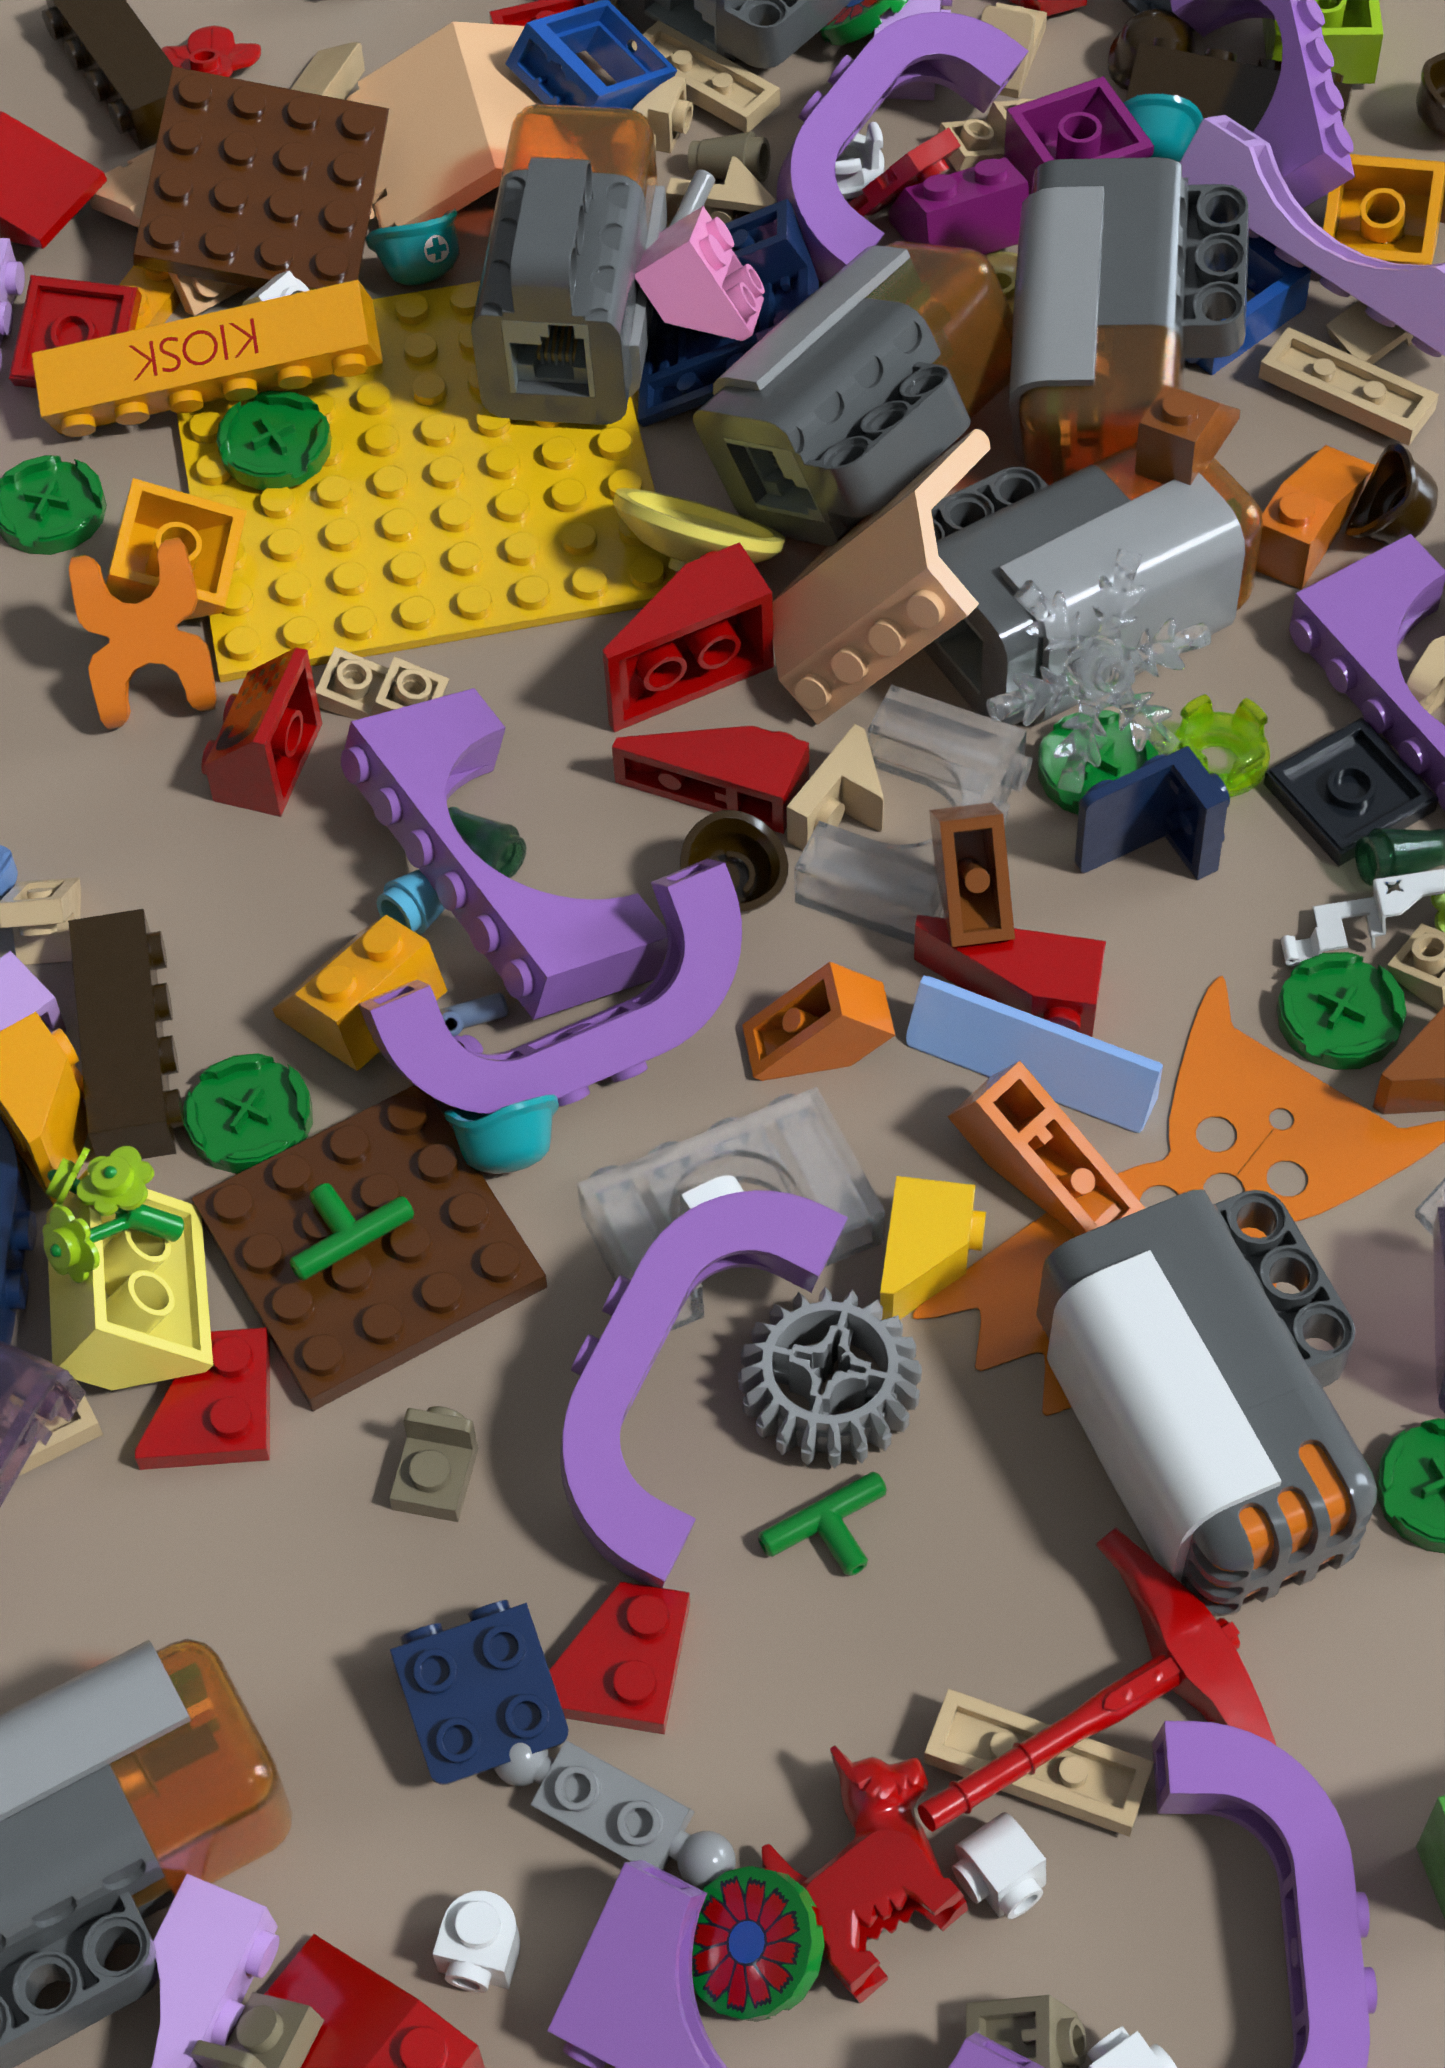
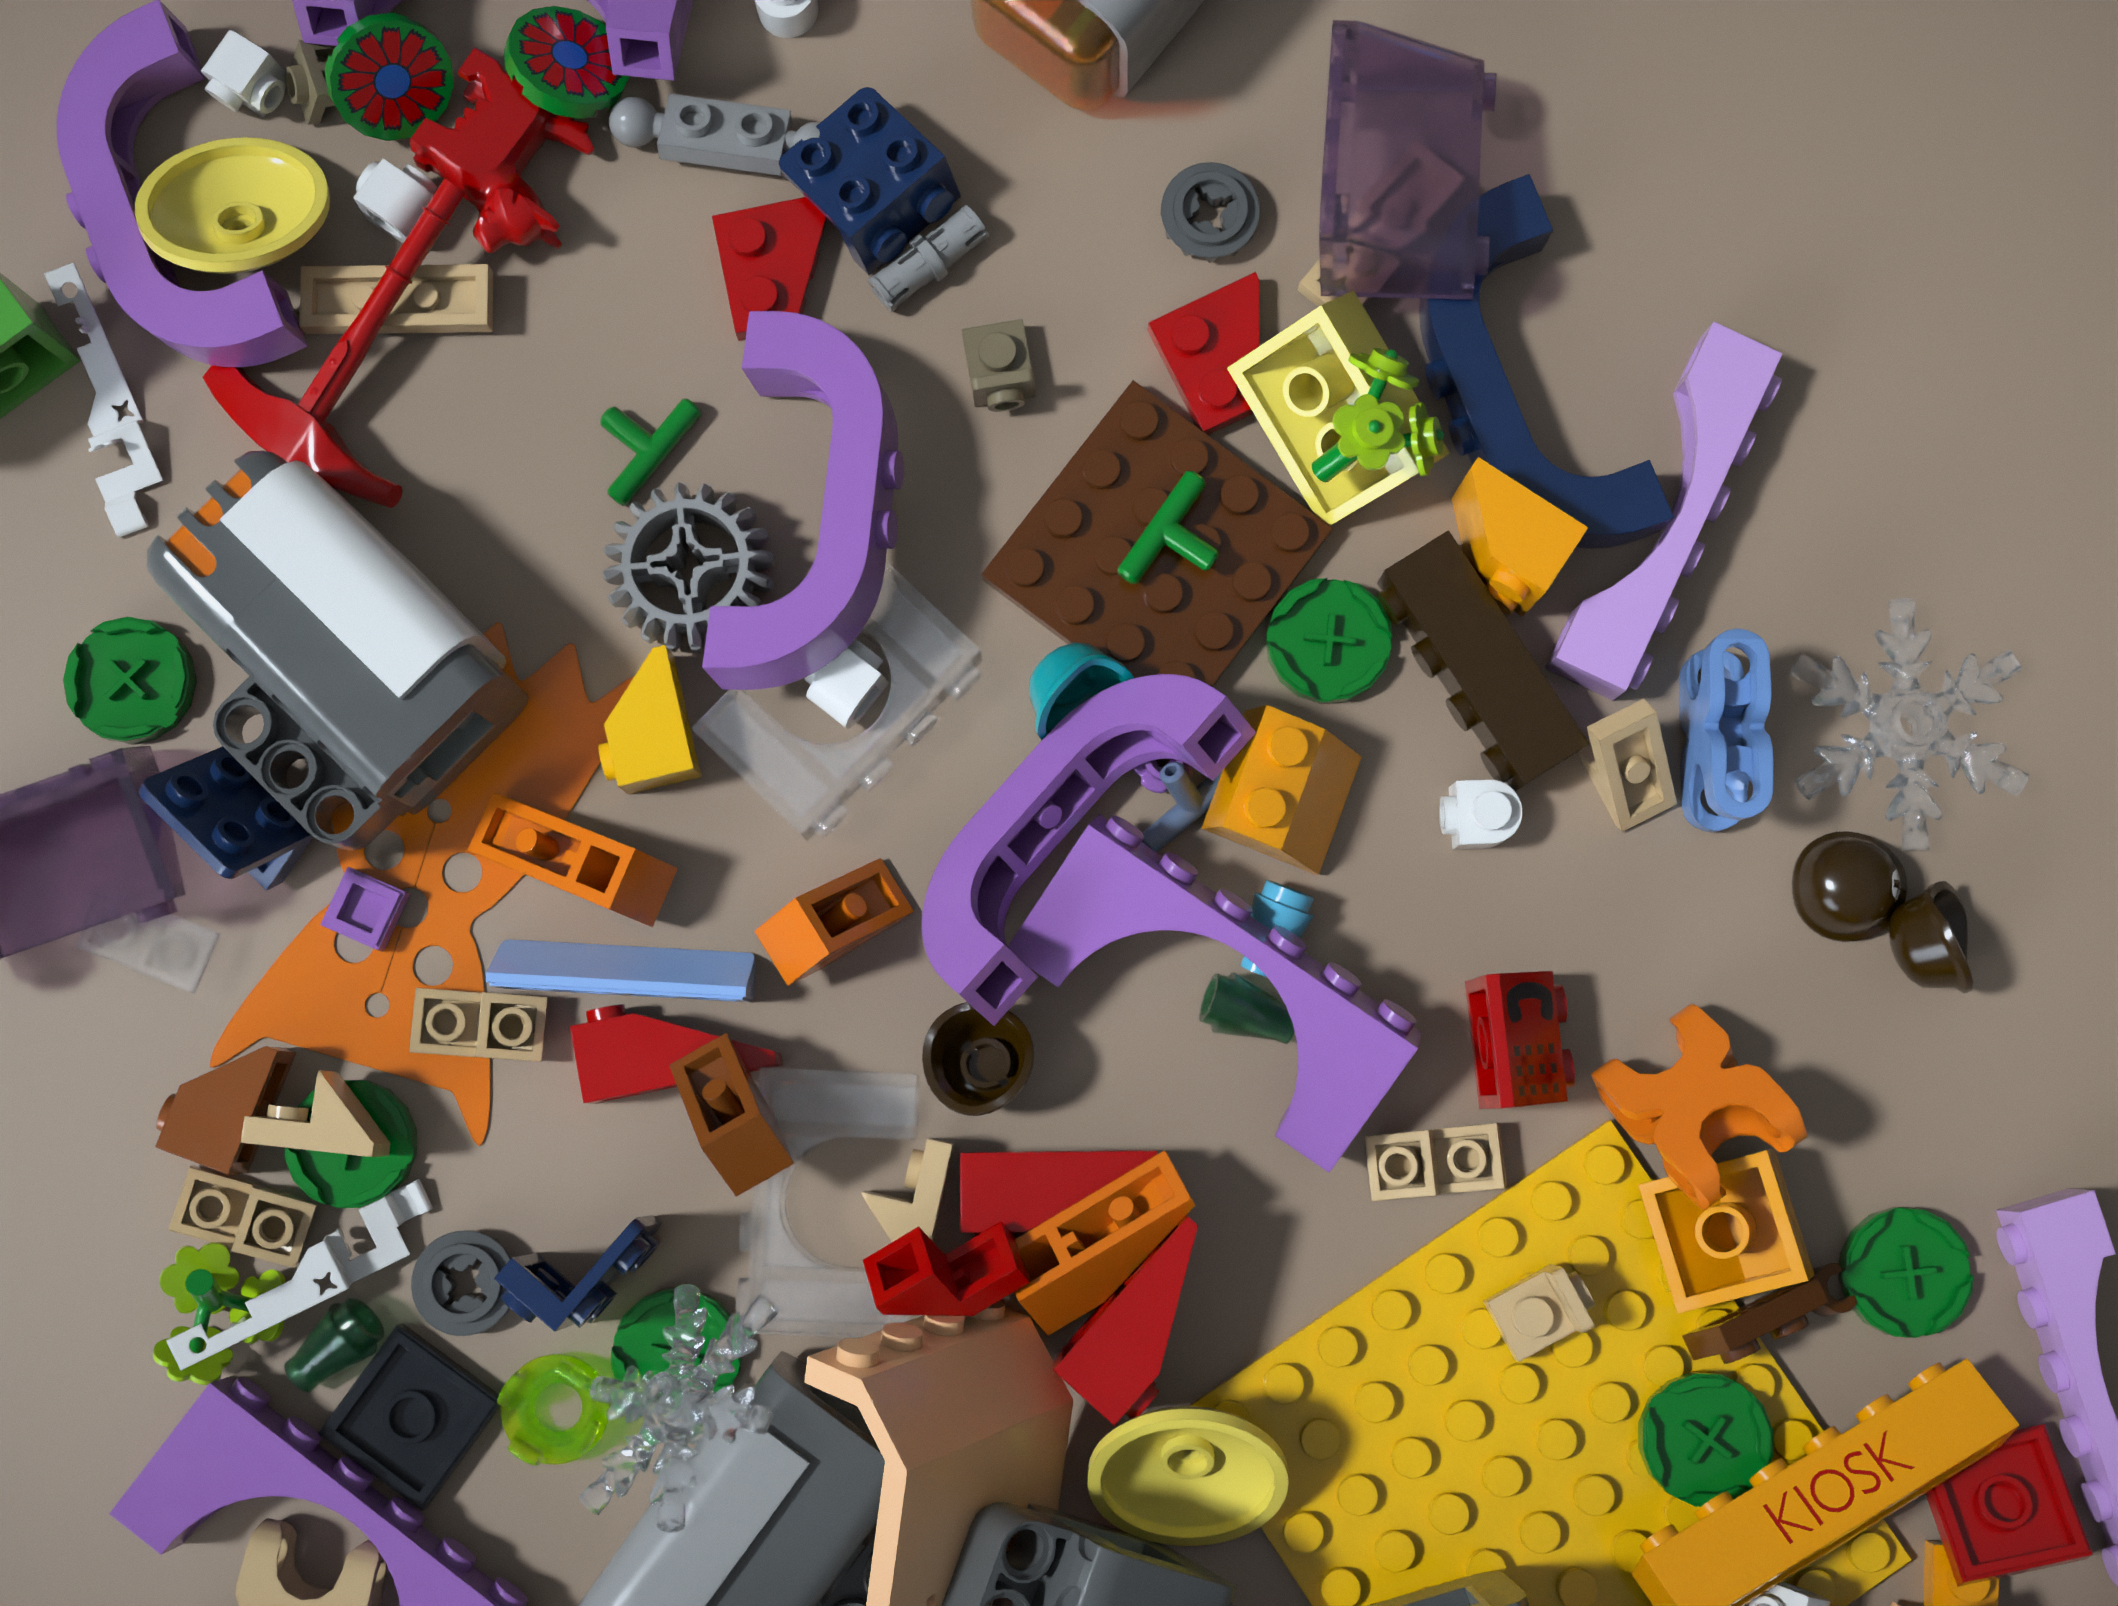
camera: 155 degrees right, 25 degrees up
(124, 1522) = (1216, 185): none -> dark grey gear
(194, 920) = (1479, 813): none -> white plate
(207, 477) = (1777, 1312): none -> reddish brown plate
(353, 554) = (1541, 1310): none -> tan bracket
(410, 1610) = (928, 258): none -> light grey pin
(691, 699) = (1099, 1242): none -> orange slope
(832, 698) = (920, 1279): none -> red slope
(959, 1991) = (389, 76): none -> tile
(1173, 1960) = (232, 205): none -> light yellow dish
(1193, 1065) = (478, 1024): none -> tan slope
(1268, 1175) = (365, 909): none -> medium lavender tile
(1272, 847) = (434, 1287): none -> dark grey gear
(1353, 995) = (336, 1123): none -> tan slope
(1377, 1272) = (227, 817): none -> dark blue bracket
(1403, 1747) = (111, 389): none -> white piece

